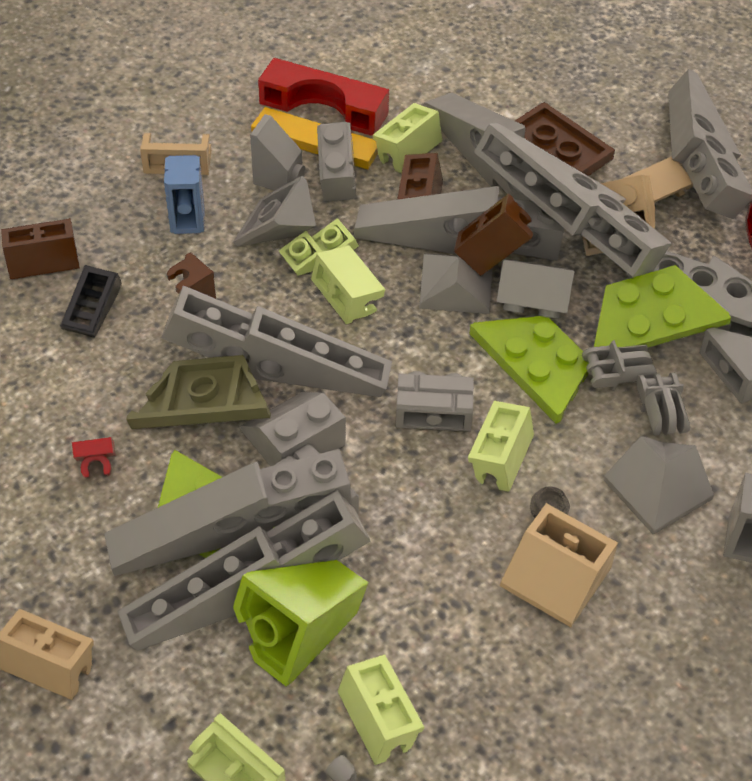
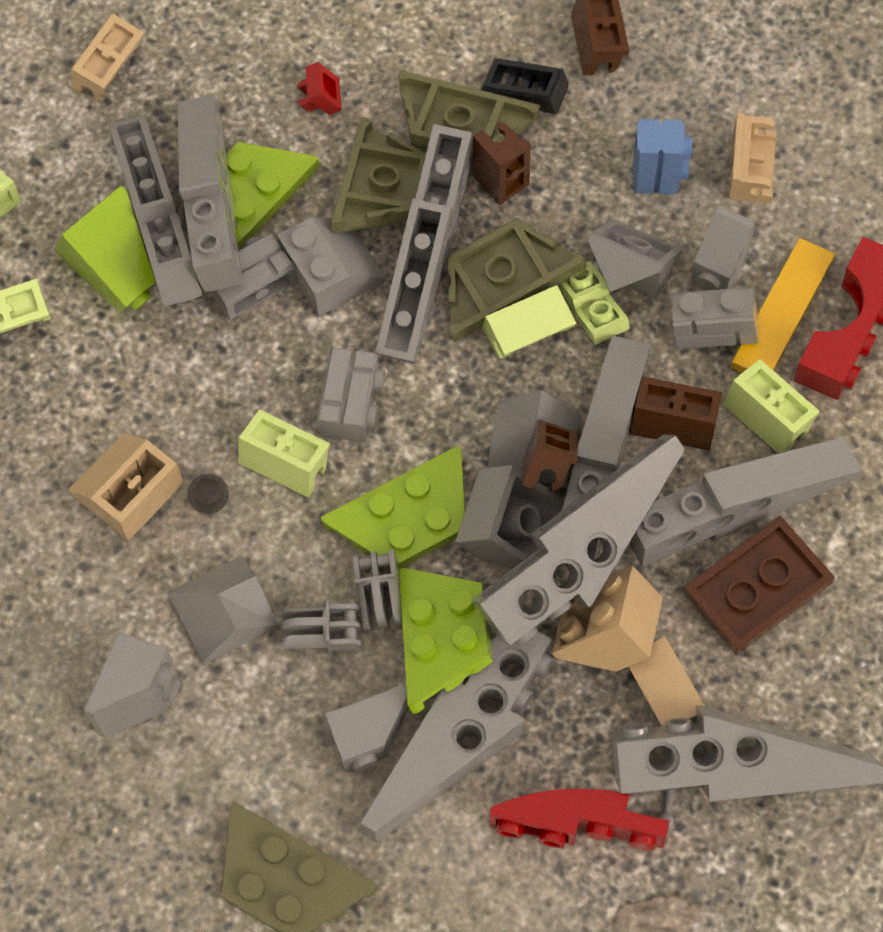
camera: 100 degrees right, 15 degrees up
(127, 345) = (459, 107): none -> olive wing
(299, 292) = (503, 271): none -> olive wing

